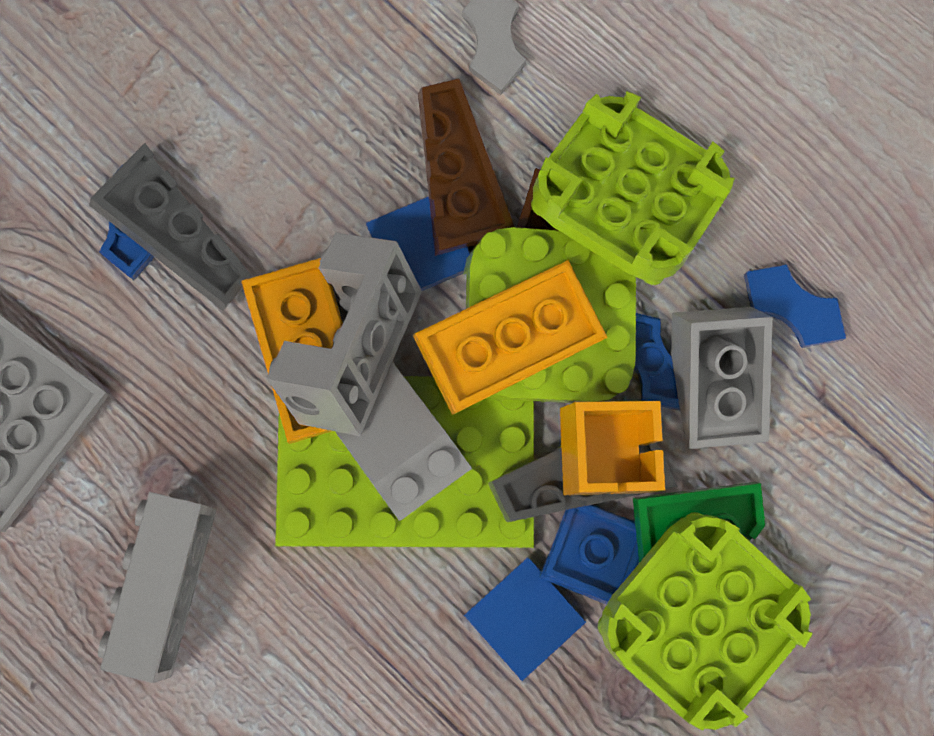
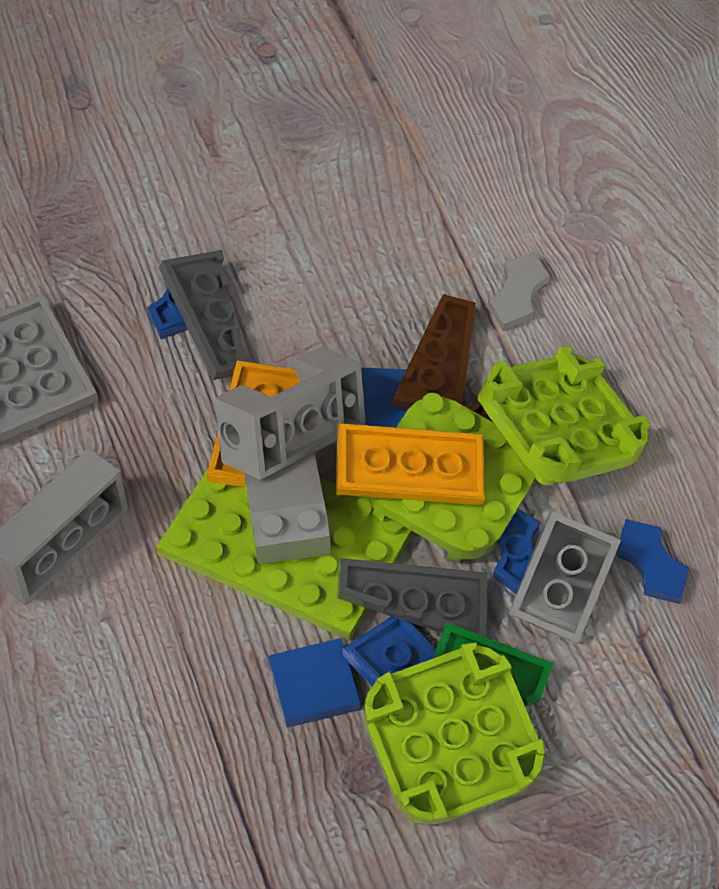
camera: 30 degrees right, 25 degrees down
(603, 447) = (443, 570): light orange piece -> none

